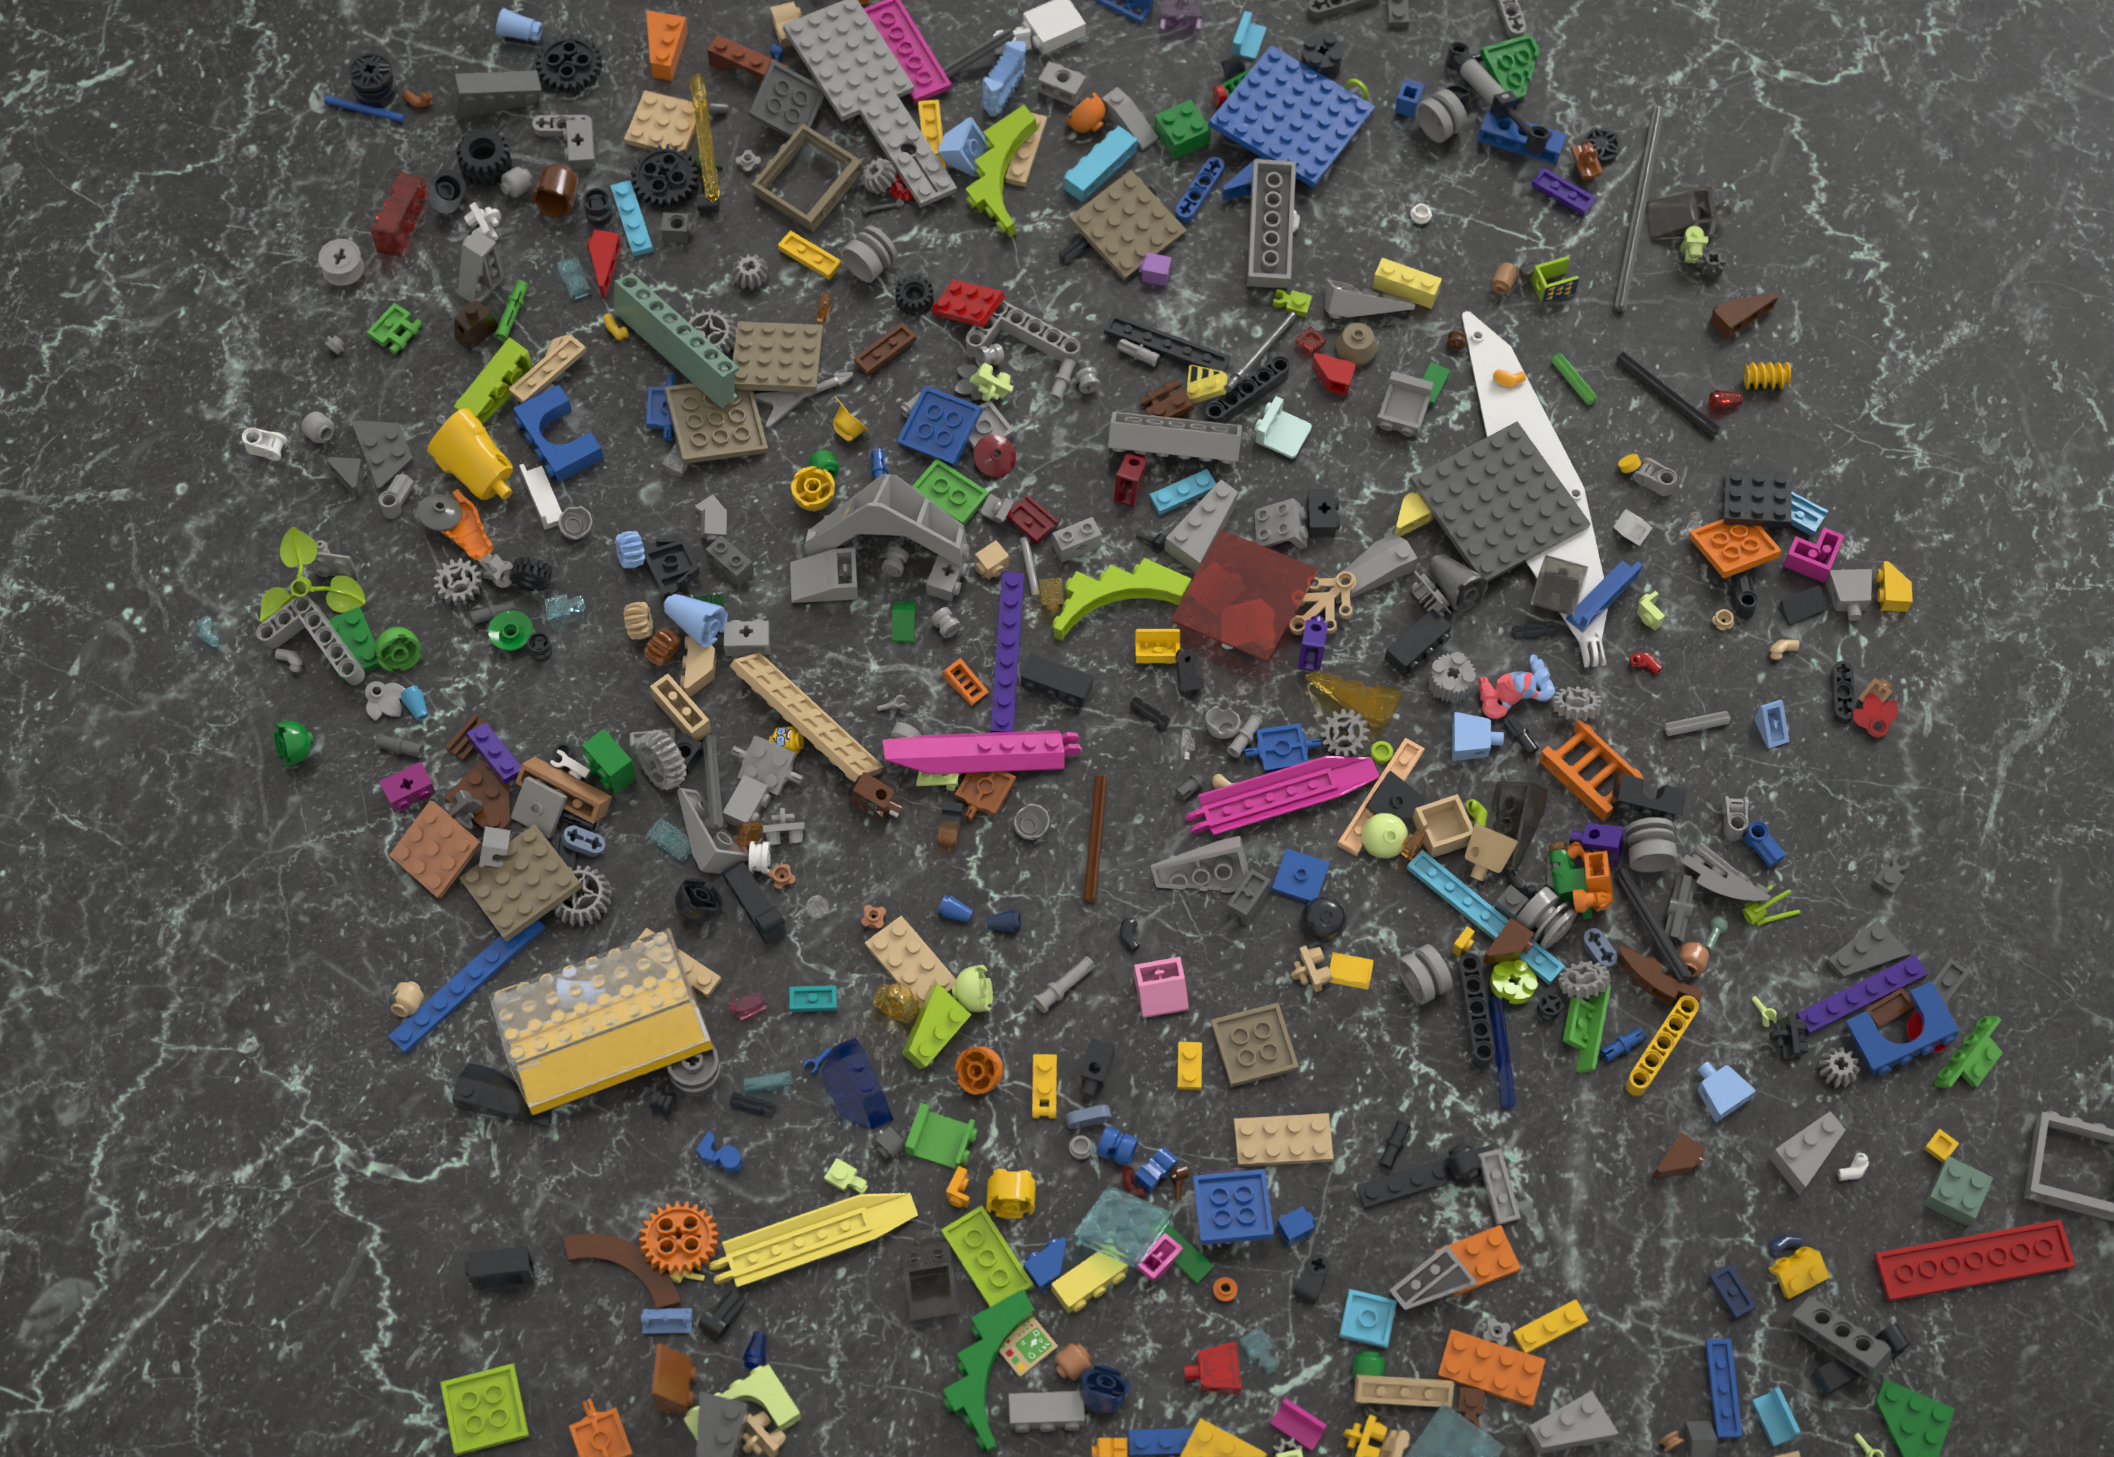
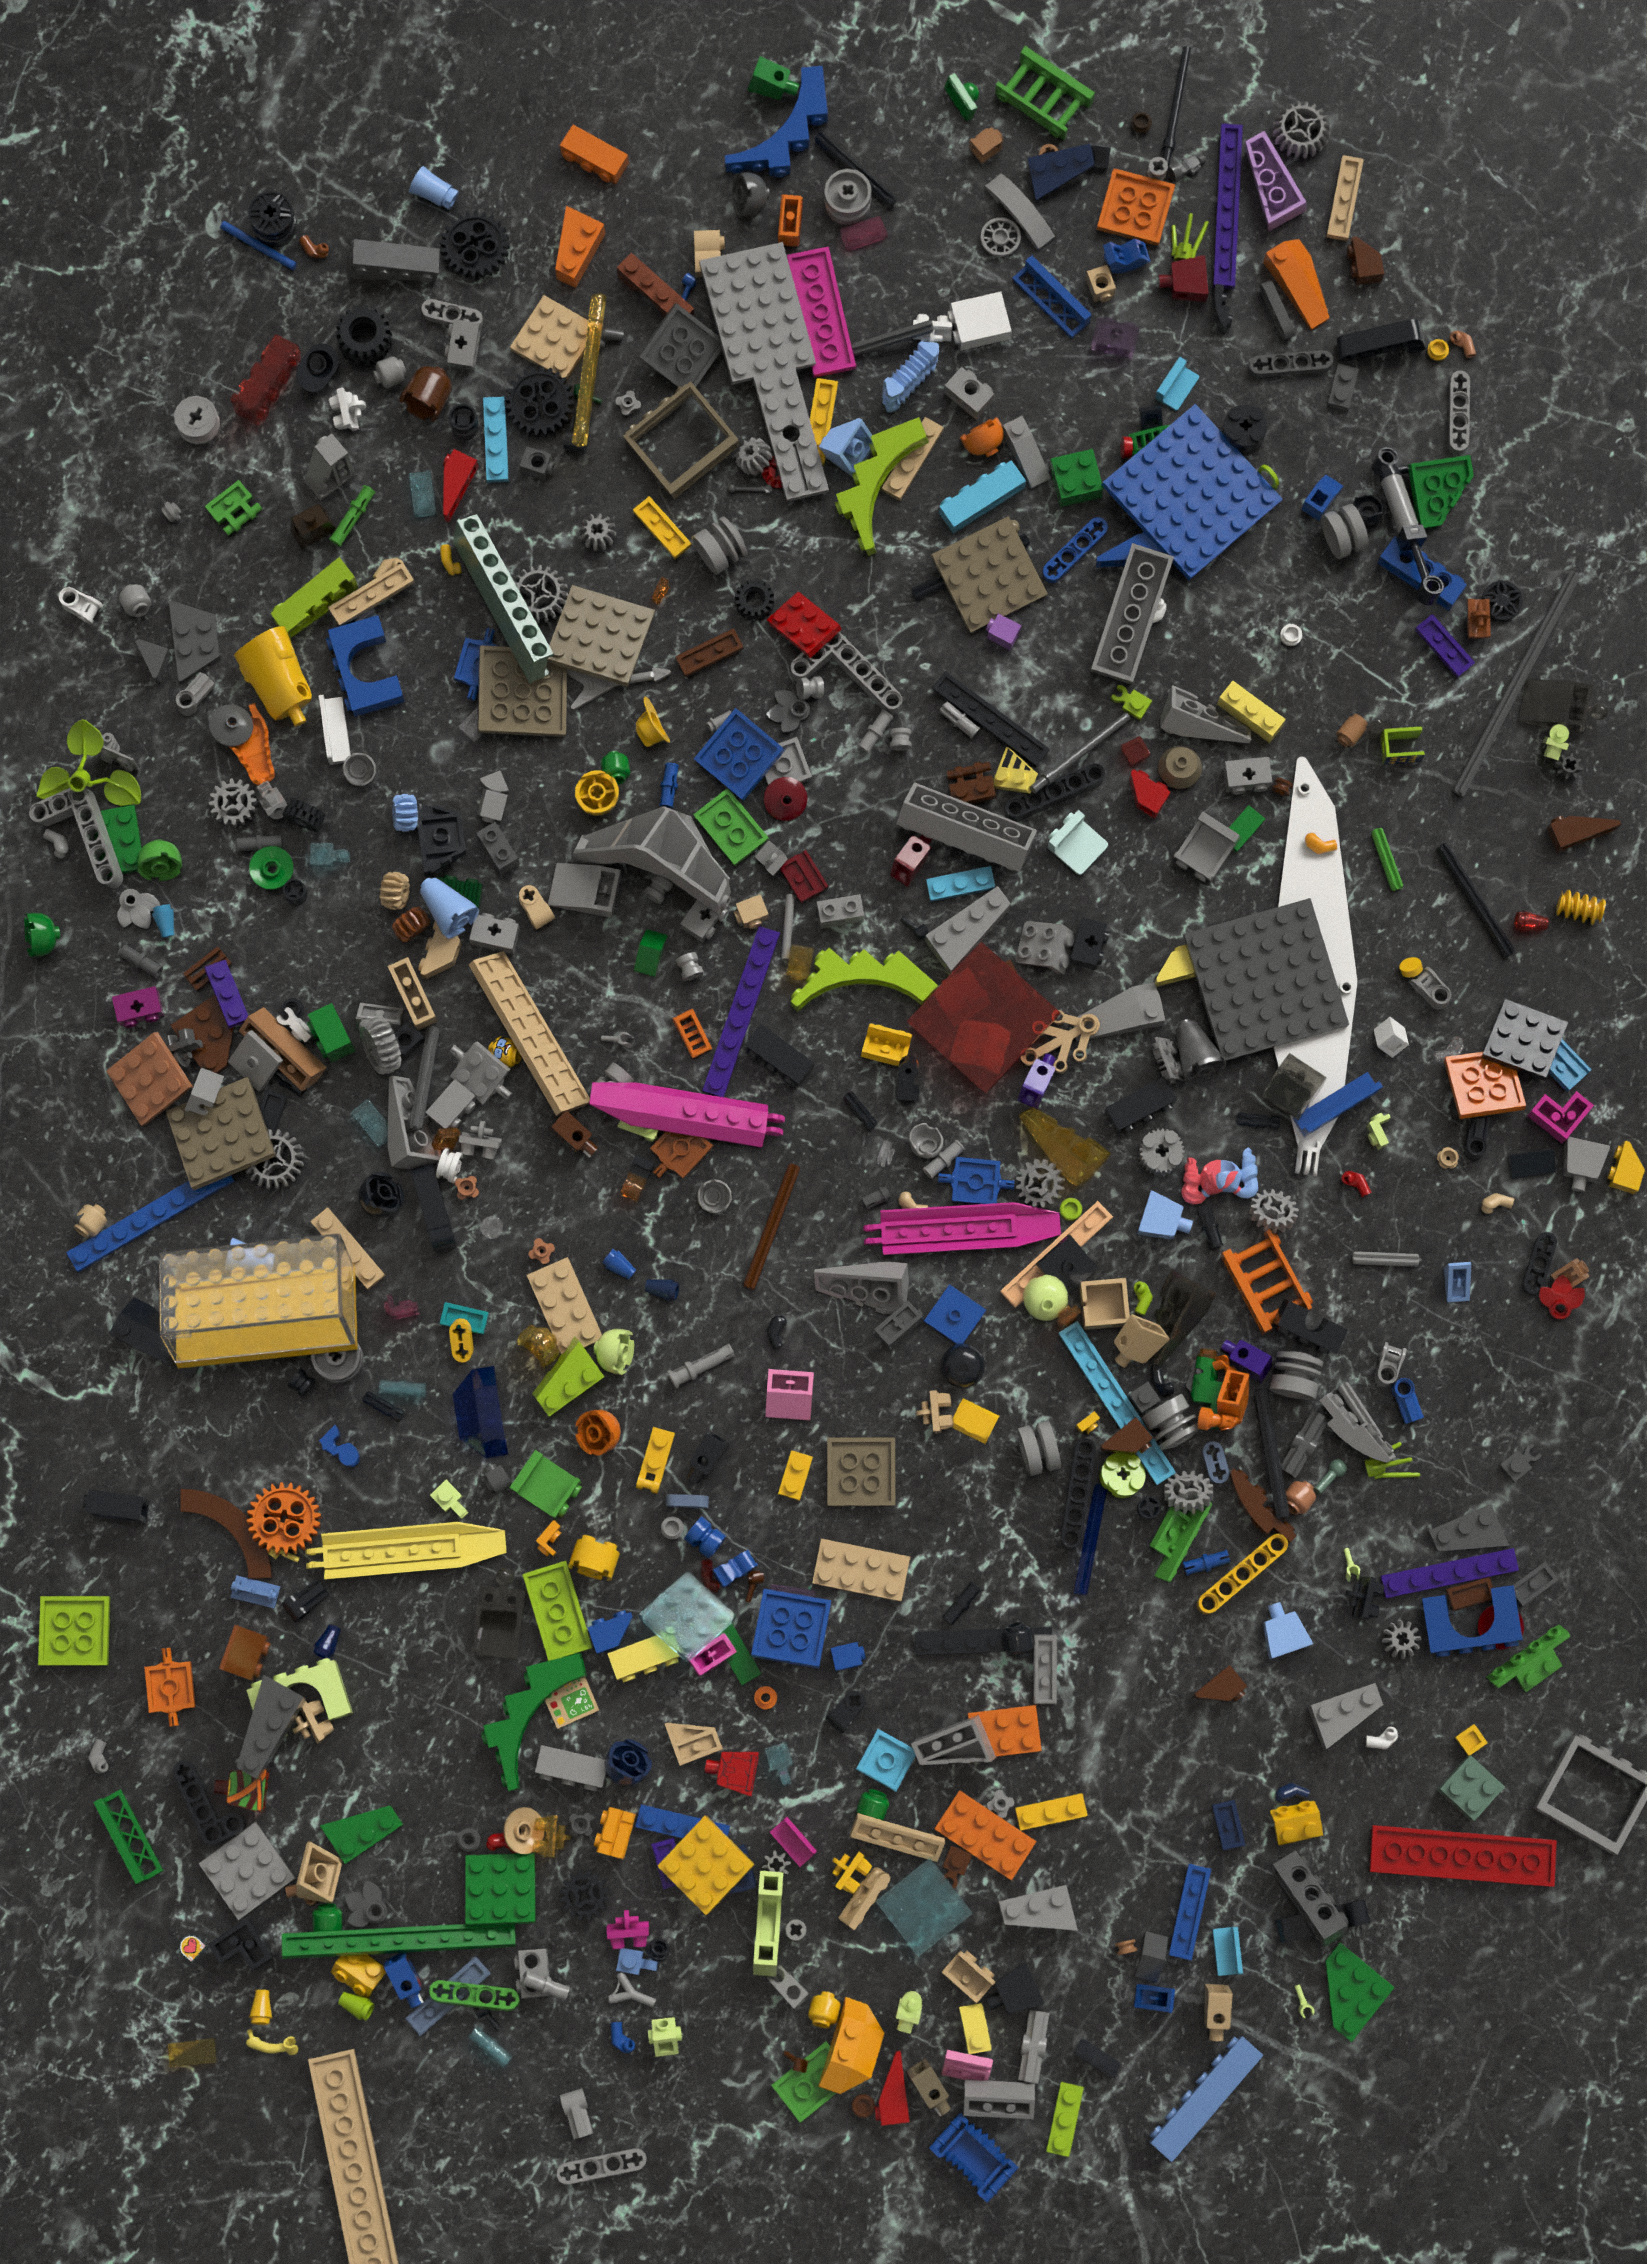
camera: 15 degrees right, 15 degrees up
(583, 841) = (291, 1100): sand blue beam -> none
(780, 604) = (537, 909): none -> tan piece
(817, 1061) = (454, 1379): blue hand -> none
(821, 1016) = (466, 1339): none -> yellow beam
(989, 385) = (796, 715): yellowish green hips -> none
(1072, 1361) = (607, 1729): nougat head -> none
(1164, 1352) = (692, 1741): none -> tan wing
(1421, 336) = (1256, 768): none -> light grey brick

